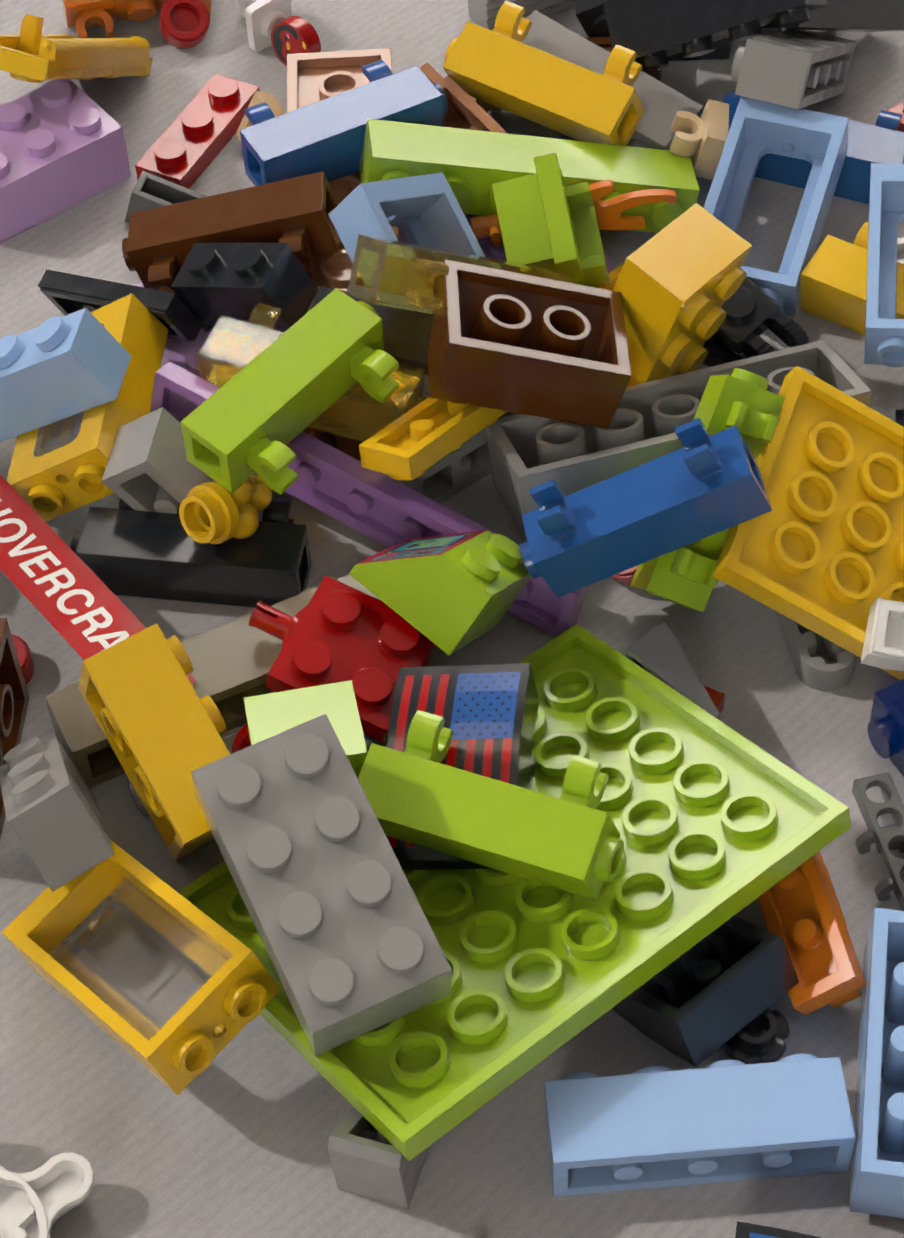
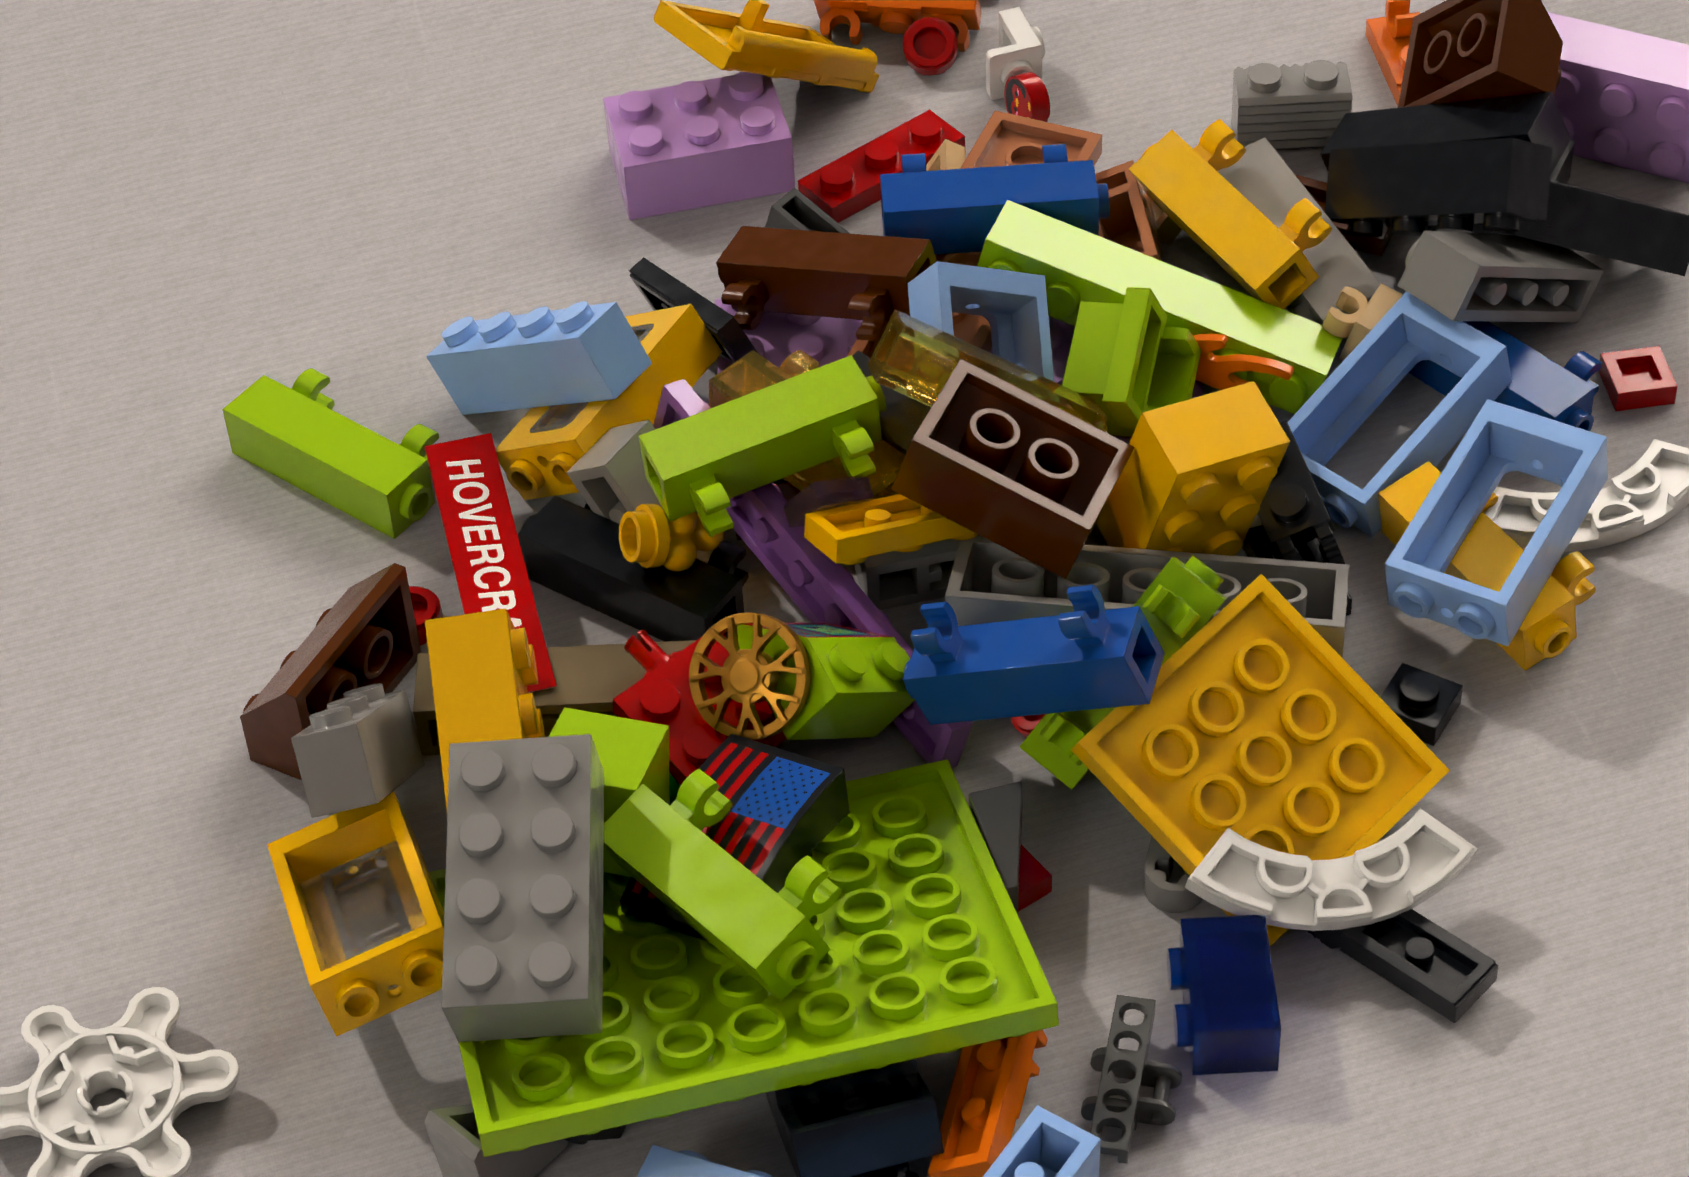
camera: 25 degrees right, 5 degrees down
(238, 276) = (797, 316): black brick -> none
(365, 425) = (827, 495): none -> tile
(397, 608) = (749, 676): none -> pearl gold wheel

